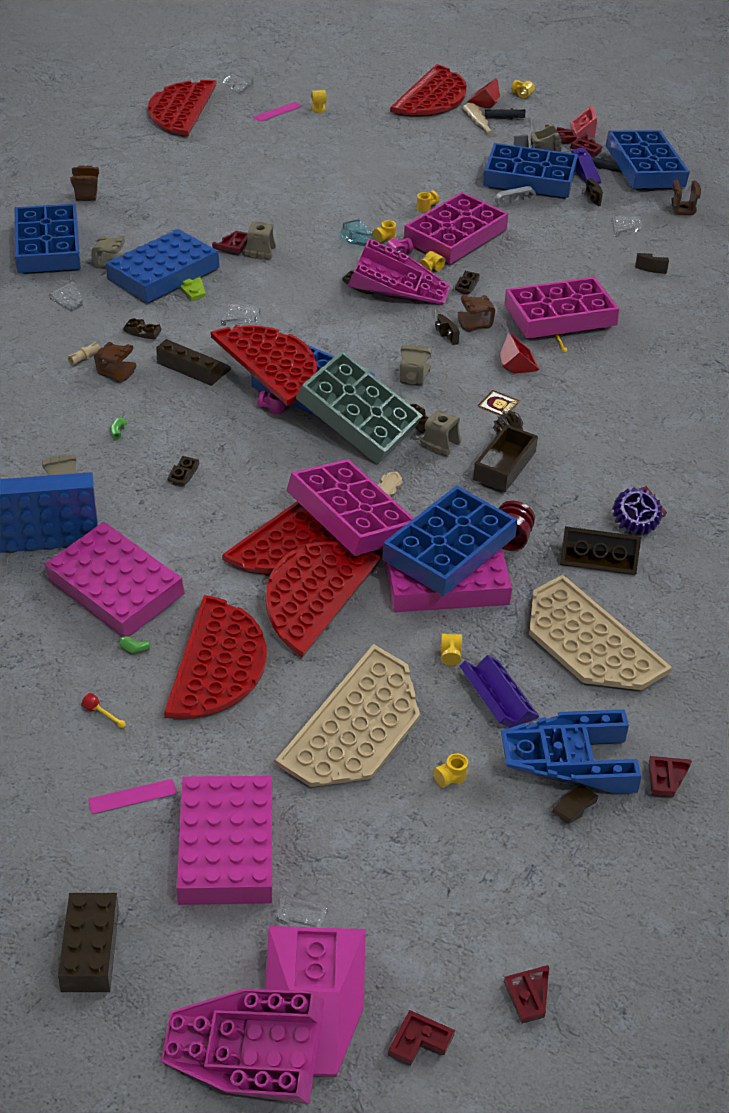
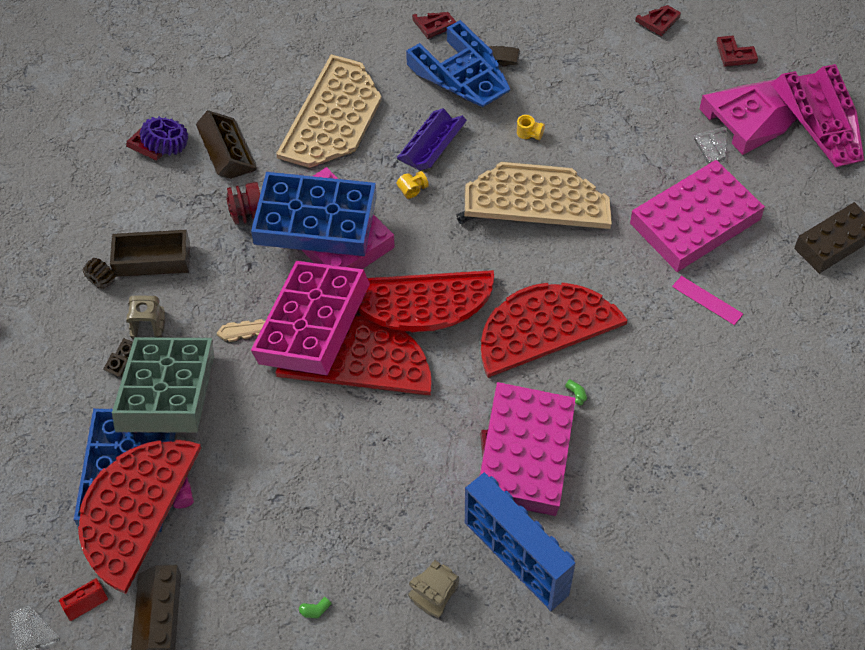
camera: 120 degrees left, 15 degrees up
(91, 703) = (657, 377): hinge -> none
(183, 471) = (339, 503): dark brown slope -> none
(413, 364) = (45, 395): dark tan piece -> none
(498, 403) = (52, 312): sticker -> none

